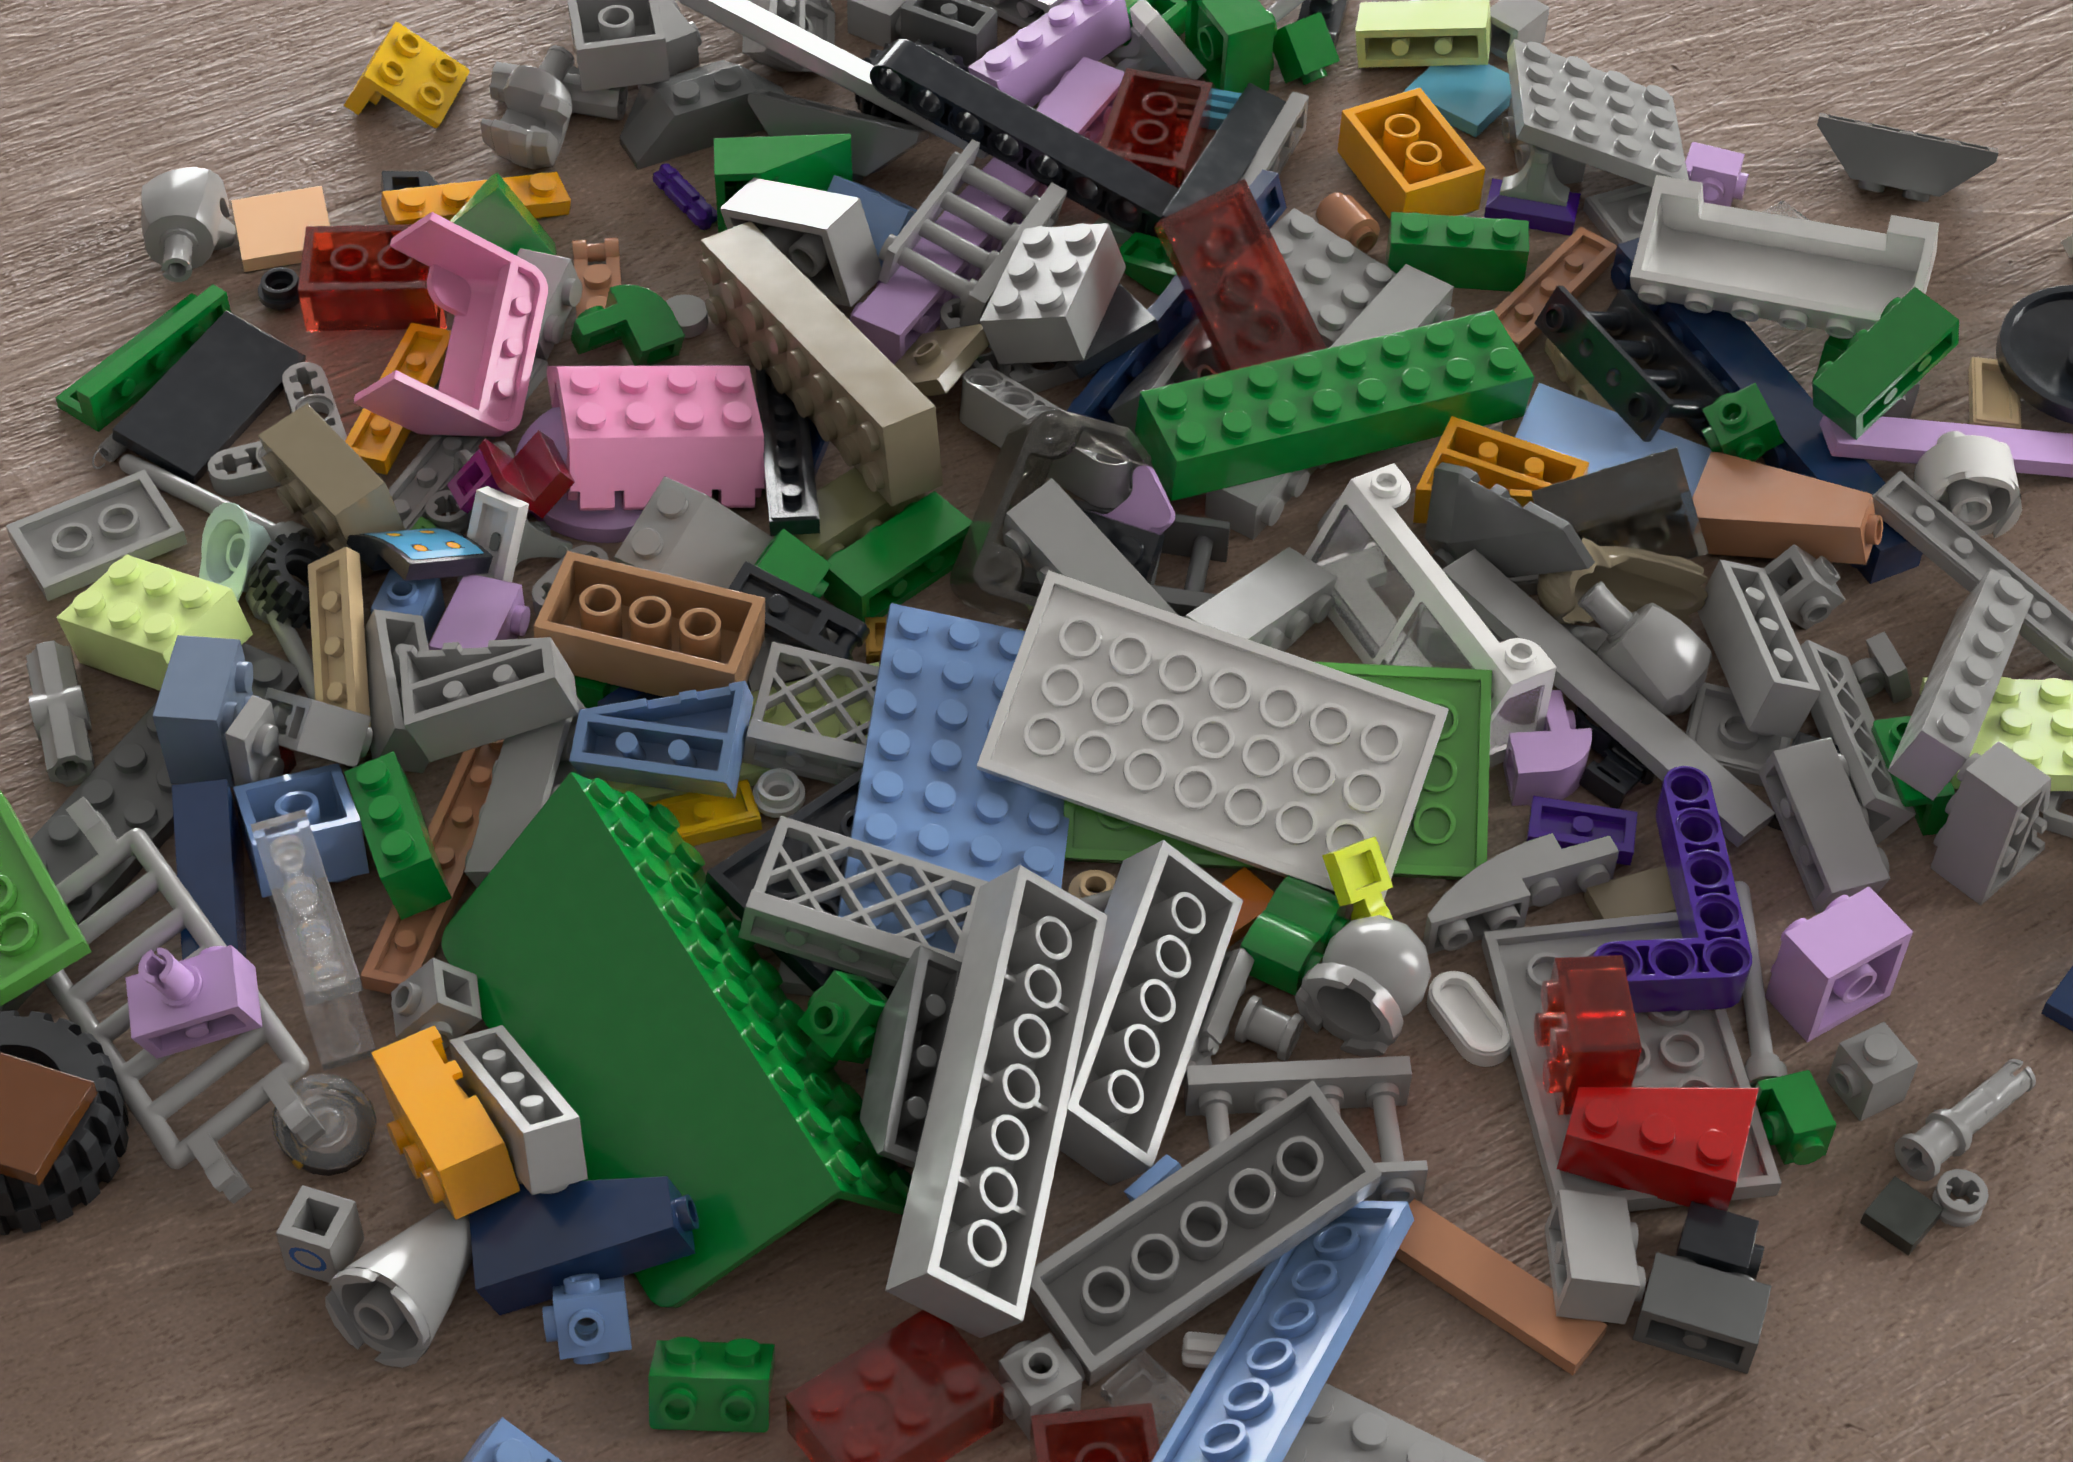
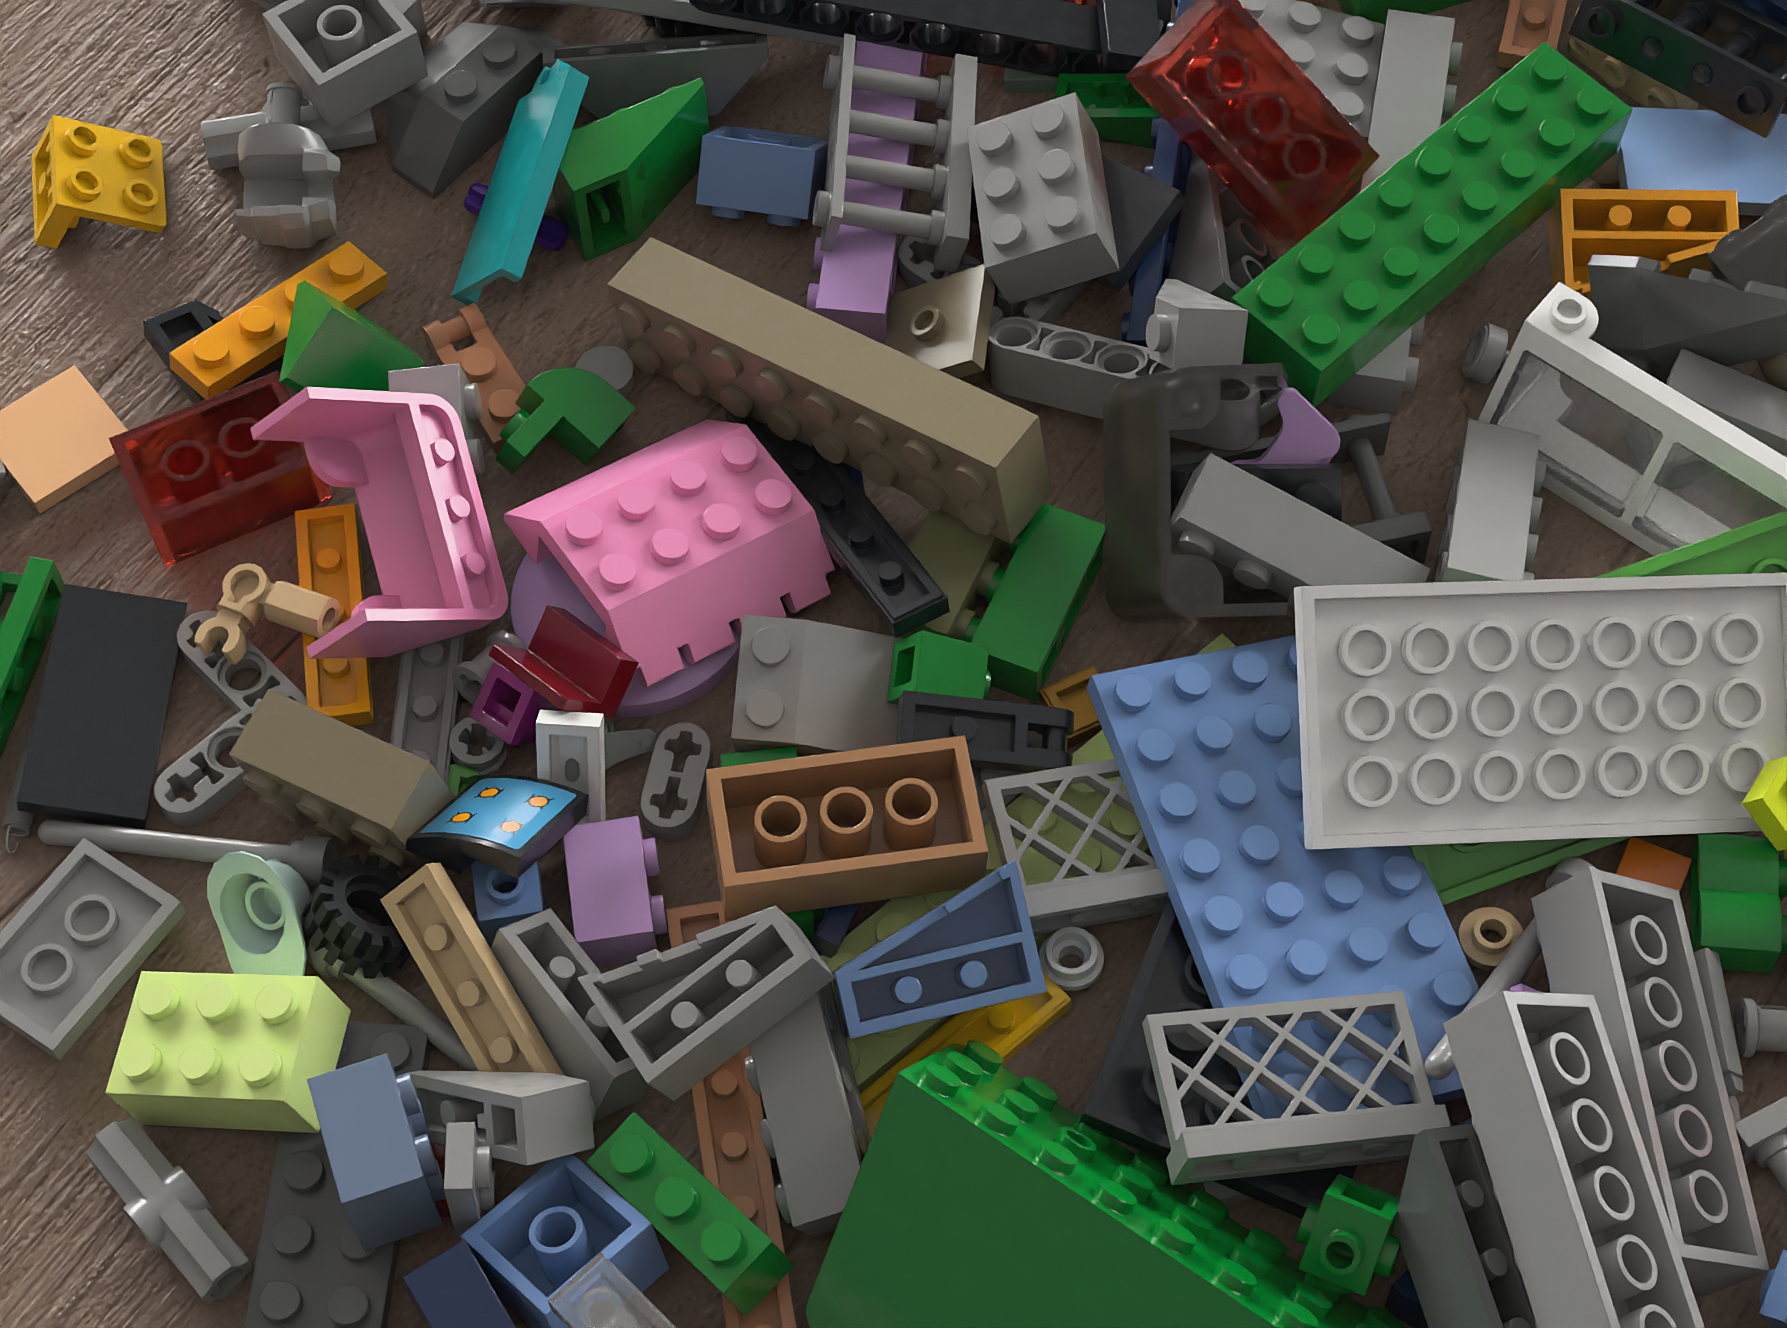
camera: 20 degrees left, 10 degrees up
(279, 289) = (99, 512): black plate -> none
(339, 363) = (251, 598): none -> tan bar
(686, 164) = (522, 181): none -> teal piece
(816, 231) = (726, 218): light grey brick -> none
(1089, 393) = (1195, 328): none -> light grey slope

